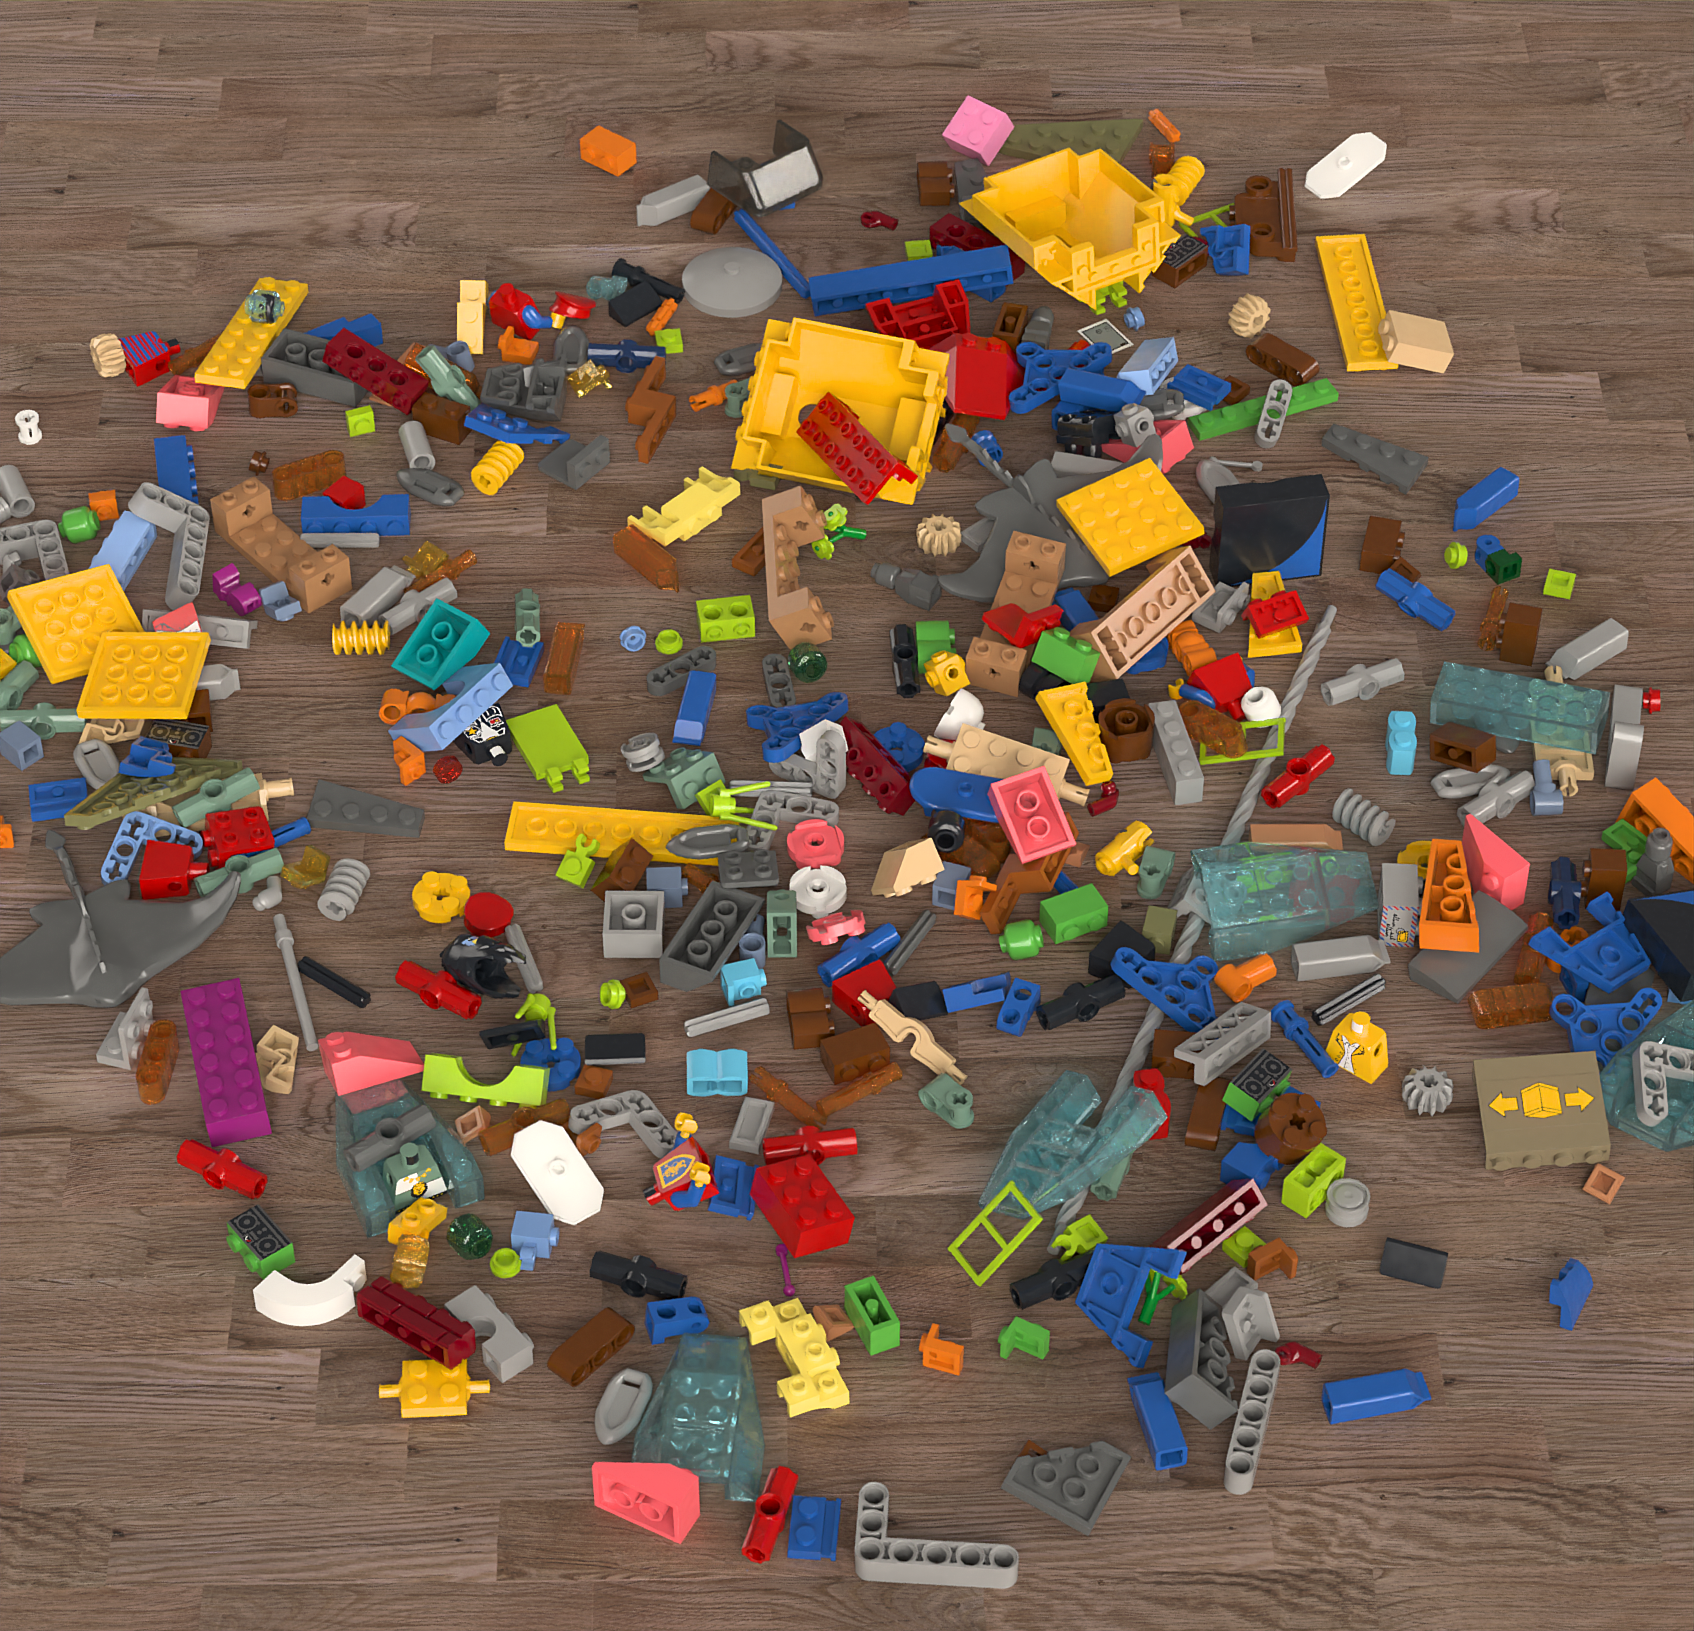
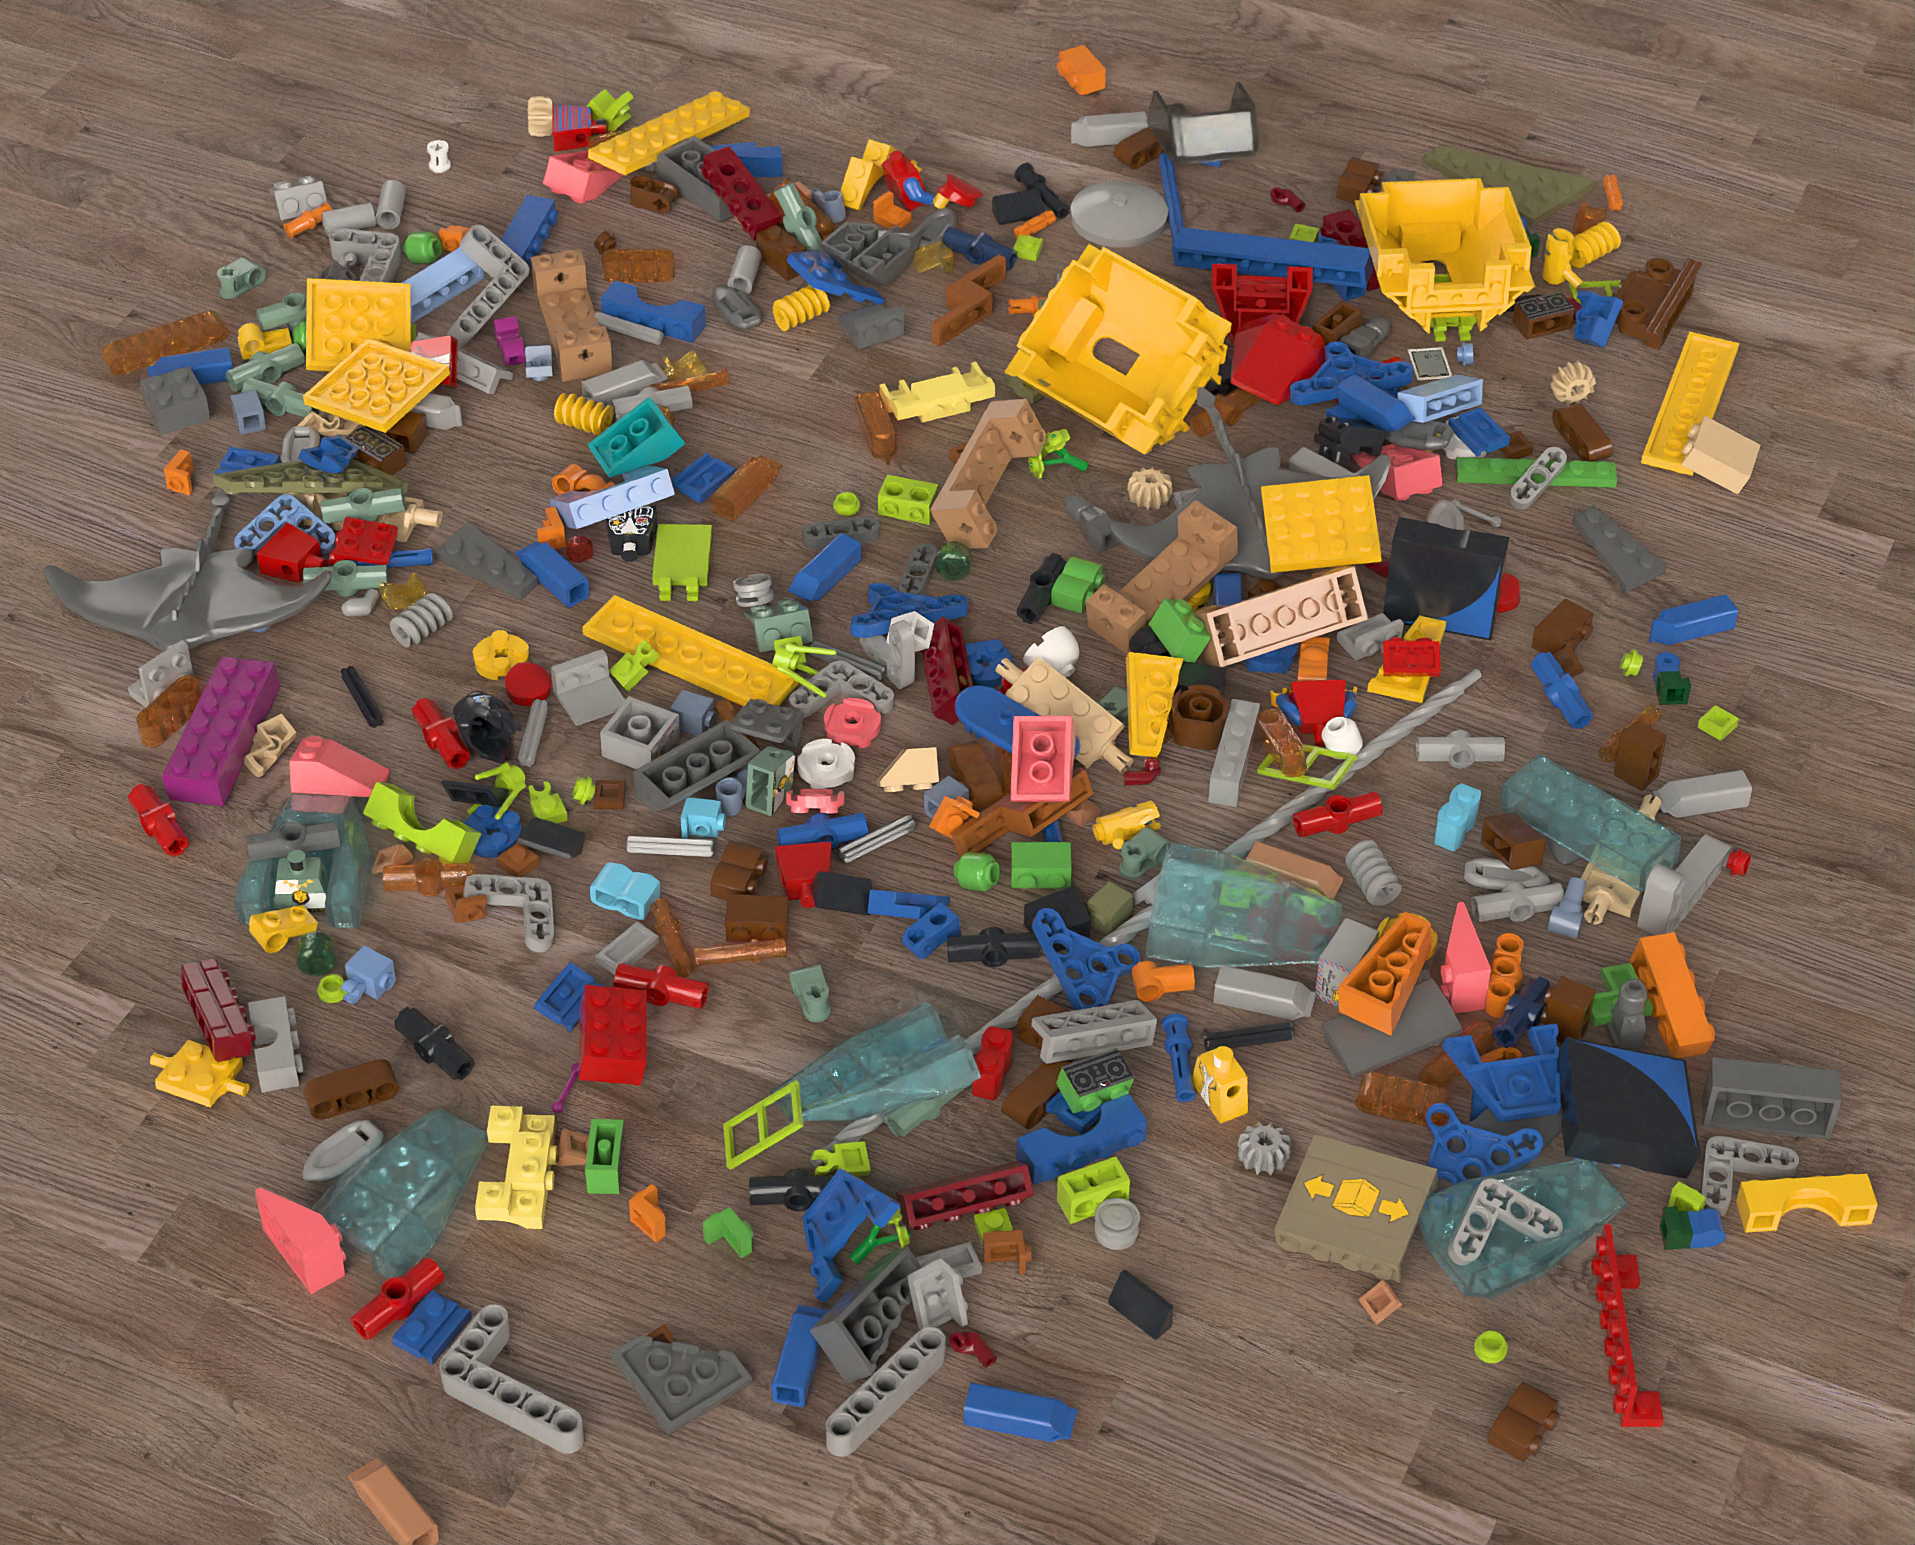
camera: 25 degrees right, 0 degrees up
(173, 327) = (614, 111): none -> lime brick
(260, 1242) = (143, 893): brick -> none
(264, 306) = (686, 111): clear light blue head -> none
(285, 941) = (345, 647): light grey bar -> none
(310, 1303) = (153, 961): white arch -> none
(347, 493) = (655, 290): red brick -> none
(360, 421) = (712, 234): lime plate -> none
(410, 1260) = (247, 955): clear yellow gear -> none
(439, 799) = (555, 573): none -> blue piece
(527, 617) = (733, 442): sand green piece -> none
(548, 900) = (586, 688): none -> light grey bracket
(557, 1172) = (426, 926): white shield -> none
(583, 1021) = (546, 805): none -> lime plate
(606, 287) = (999, 183): clear light blue plate -> none
(622, 869) = (664, 684): reddish brown brick -> none
(633, 643) = (815, 495): medium blue plate -> none
(675, 1318) = (439, 1091): blue leg -> none
(685, 1172) = (530, 968): torso -> none
(708, 841) = (751, 684): dark grey piece -> none
(851, 449) = (1107, 386): red bracket -> none
(899, 1027) = (821, 935): tan piece -> none
(946, 673) = (1070, 619): yellow brick -> none
(947, 831) = (963, 748): black head -> none
(978, 130) = (1426, 145): bright pink brick -> none
(988, 441) = (1246, 426): blue wheel -> none
(1019, 626) = (1154, 584): red bracket -> none
(1134, 424) = (1387, 440): light grey brick -> none
(1290, 1128) = (1077, 1127): reddish brown brick -> none
(1345, 165) = (1762, 276): white shield -> none
(1538, 880) = (1505, 973): none -> orange piece
(1571, 1292) = (1271, 1391): blue slope -> none

